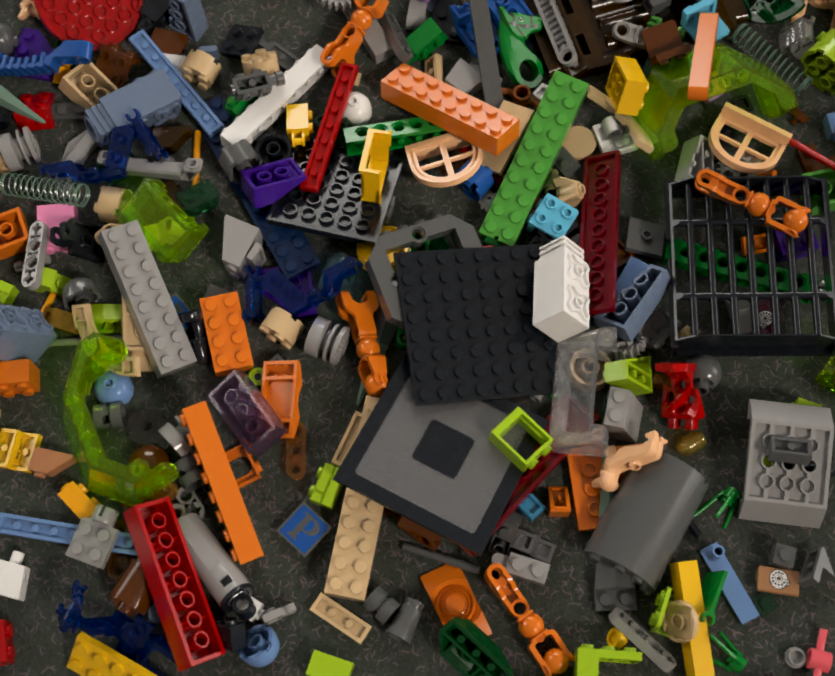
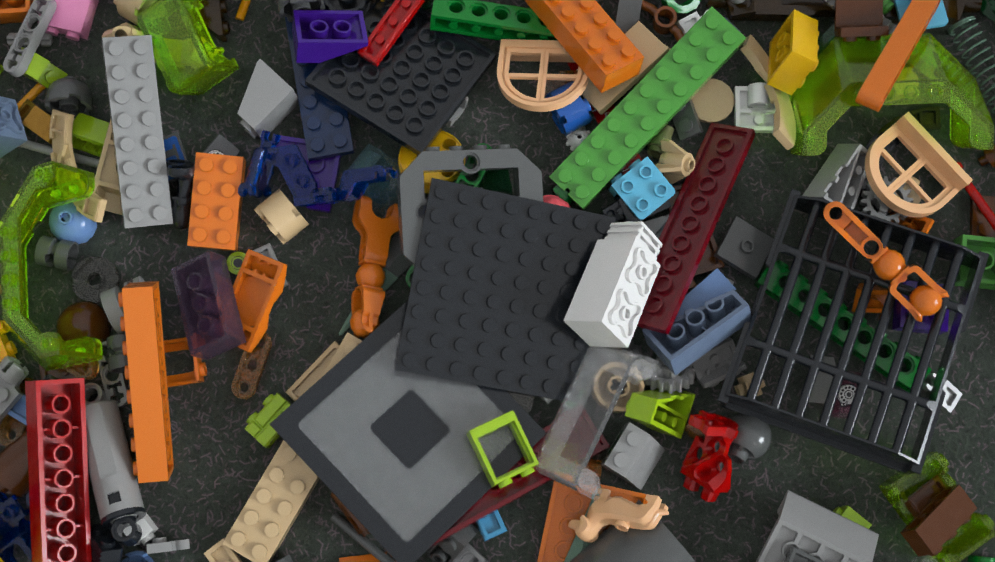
camera: 20 degrees right, 10 degrees up
(72, 235) = (79, 25): black plate -> none
(198, 198) = (239, 25): clear green bracket -> none
(256, 256) = (281, 121): light grey tile -> none
(304, 529) = (229, 459): piece -> none
(331, 342) = (325, 247): light grey wheel -> none
(372, 178) = (444, 76): yellow piece -> none
(558, 501) = (525, 526): orange slope -> none
(690, 443) = (702, 513): clear yellow brick -> none

